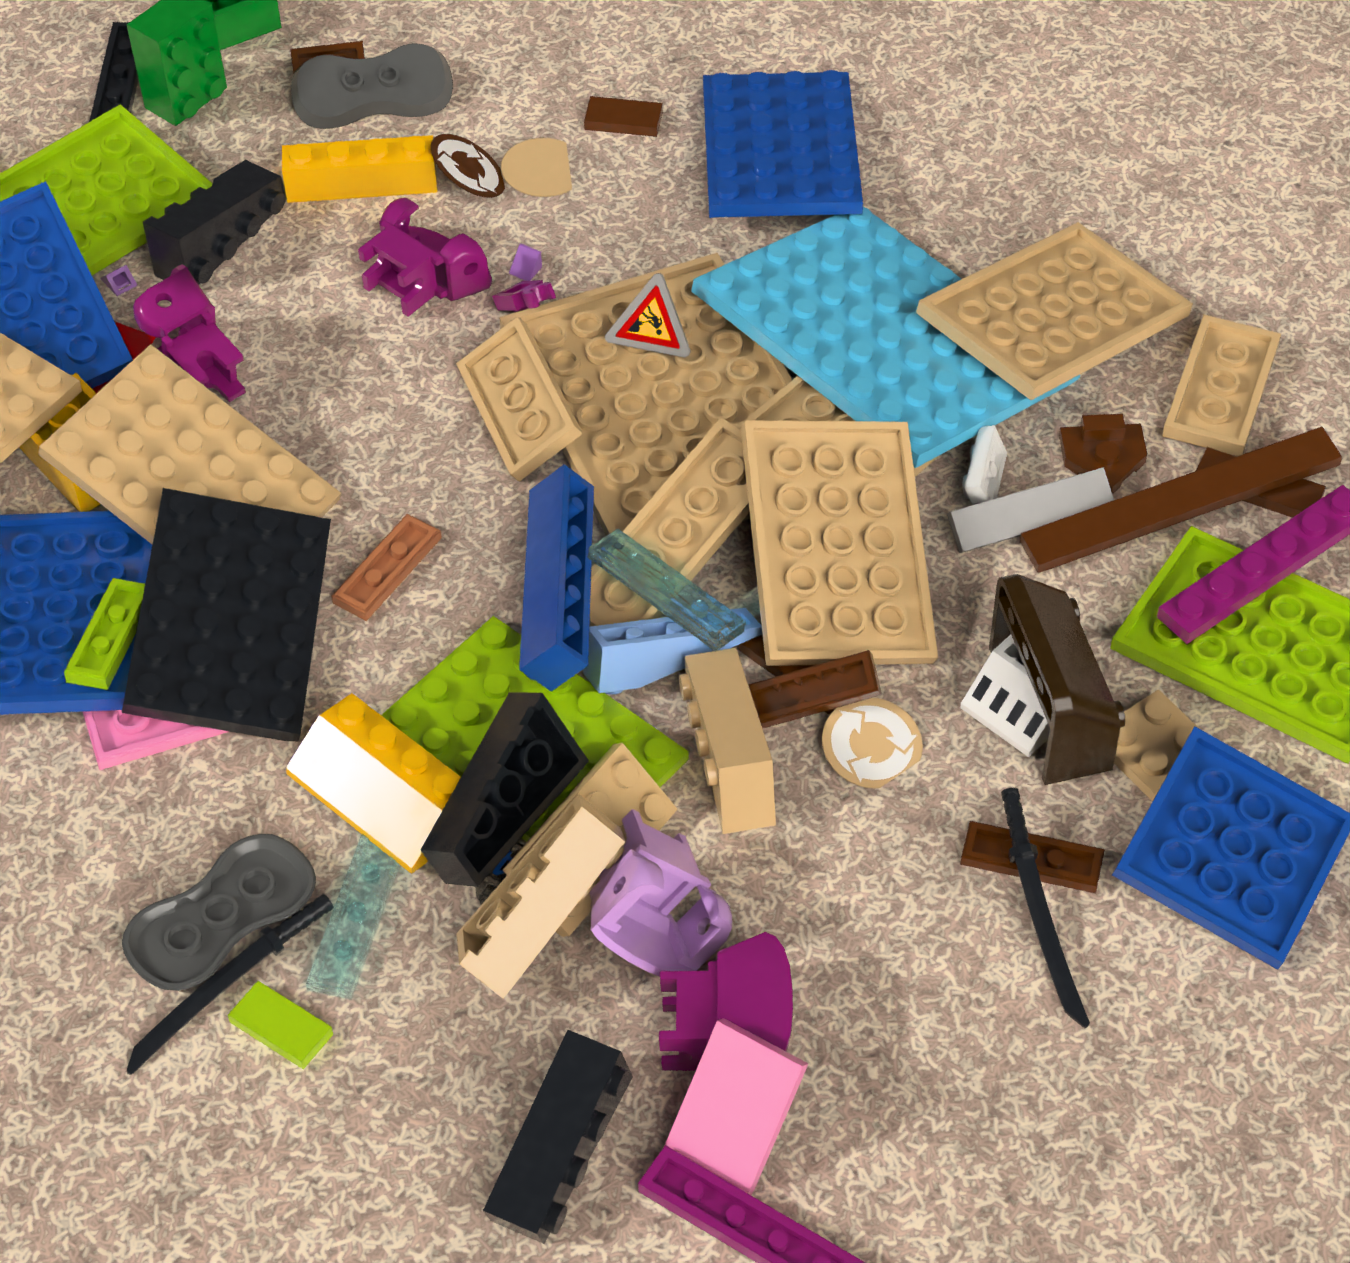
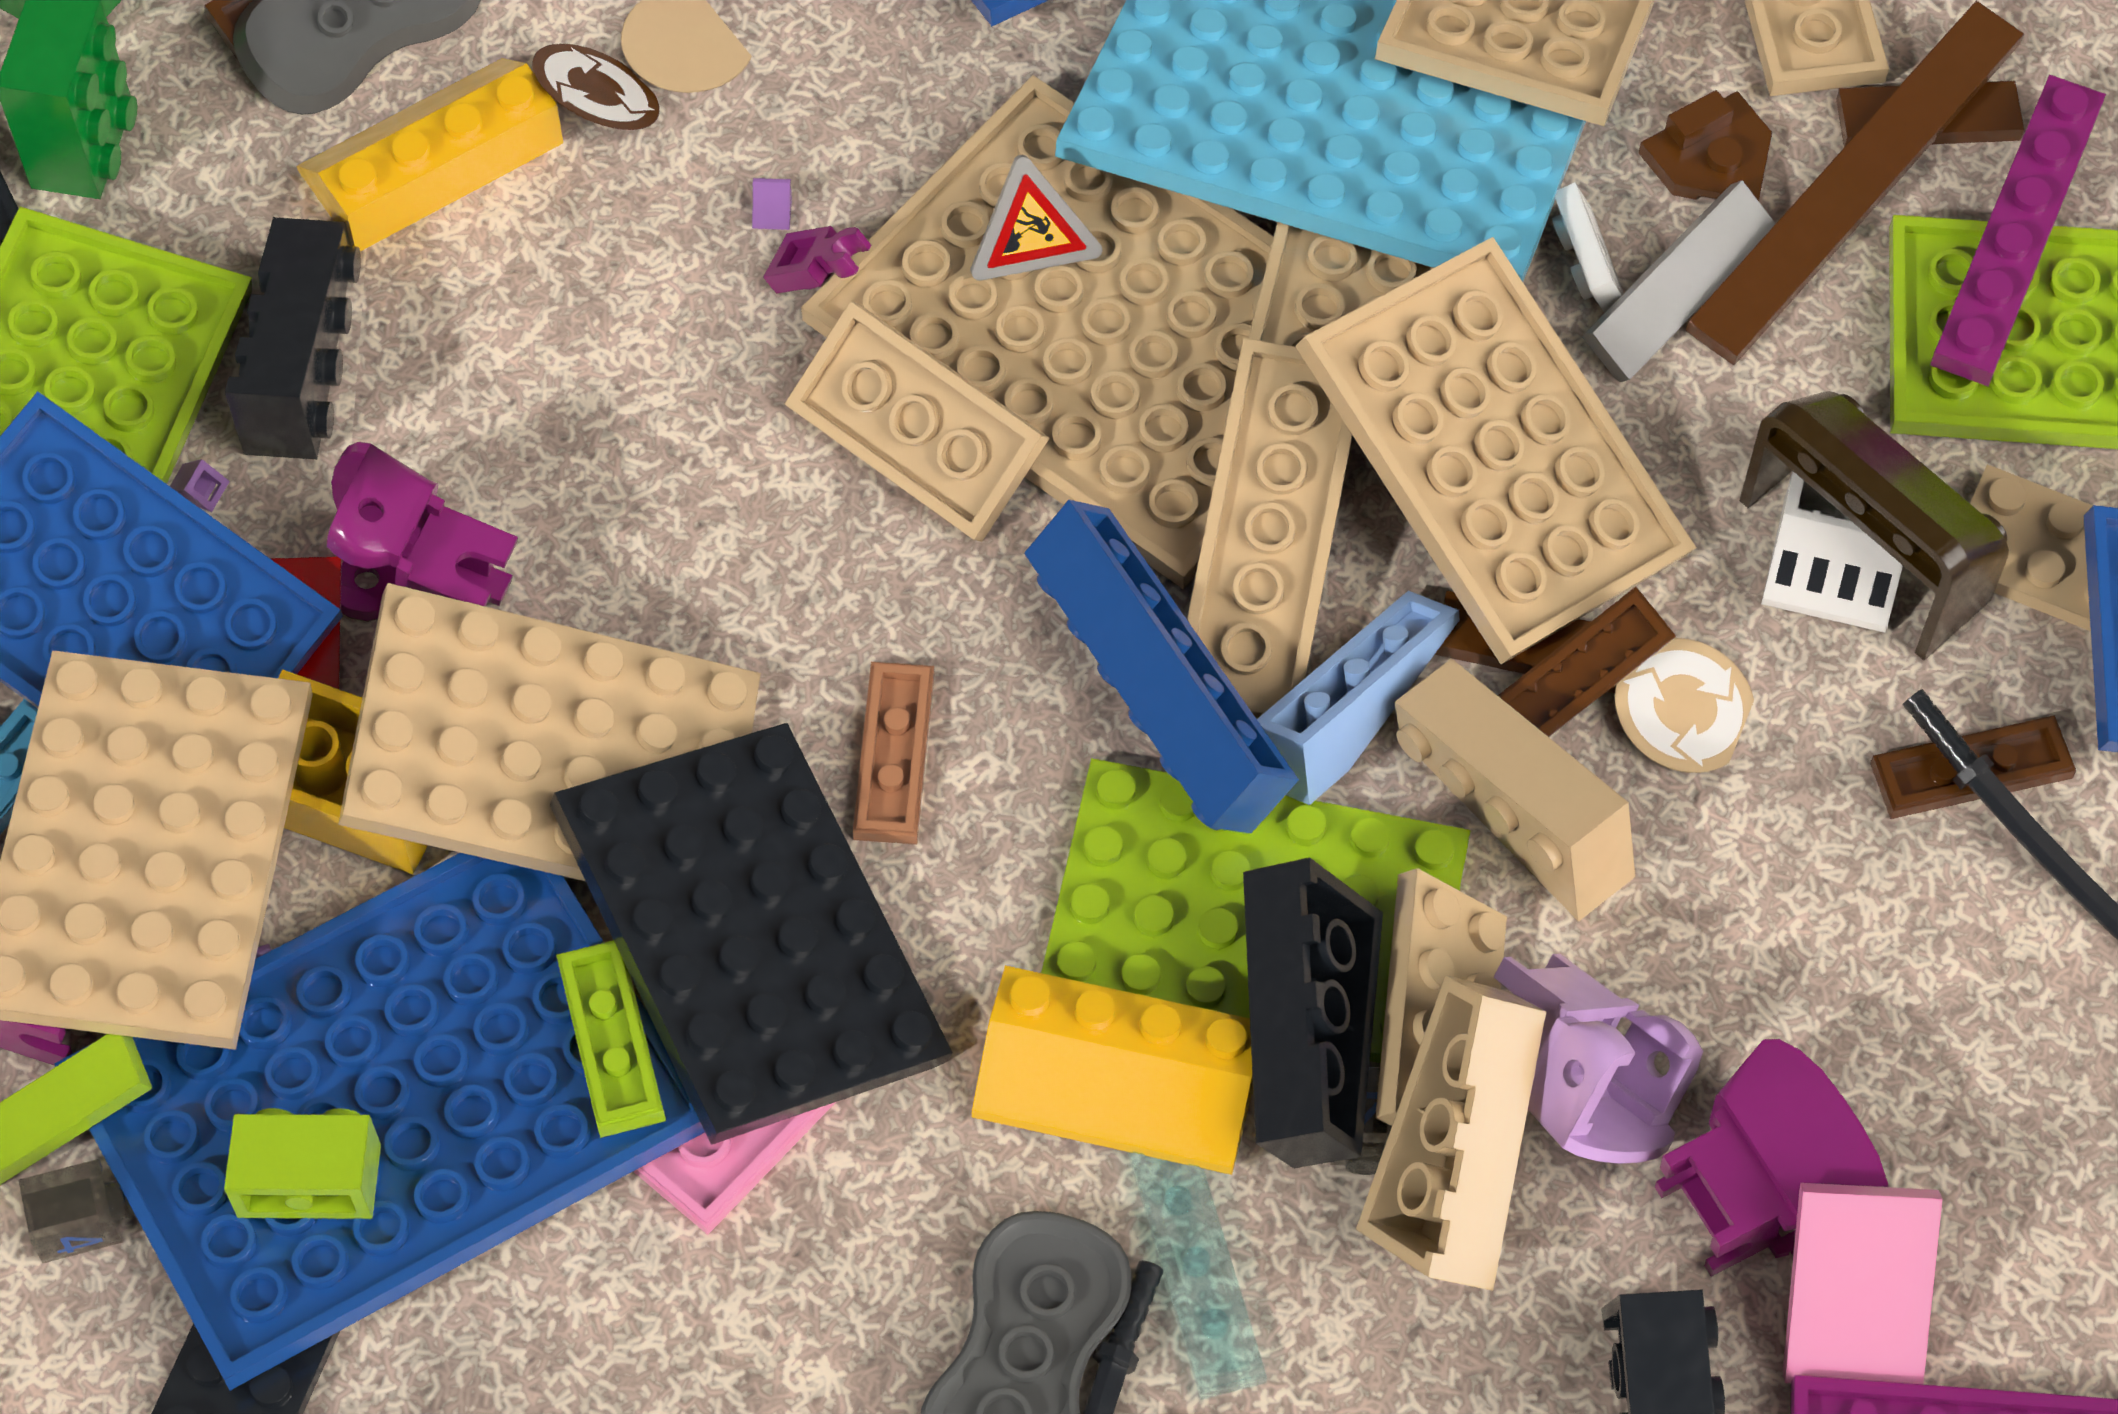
camera: 30 degrees left, 10 degrees up
(422, 262) = (636, 267): magenta piece -> none
(667, 589) = (1316, 619): clear light blue tile -> none

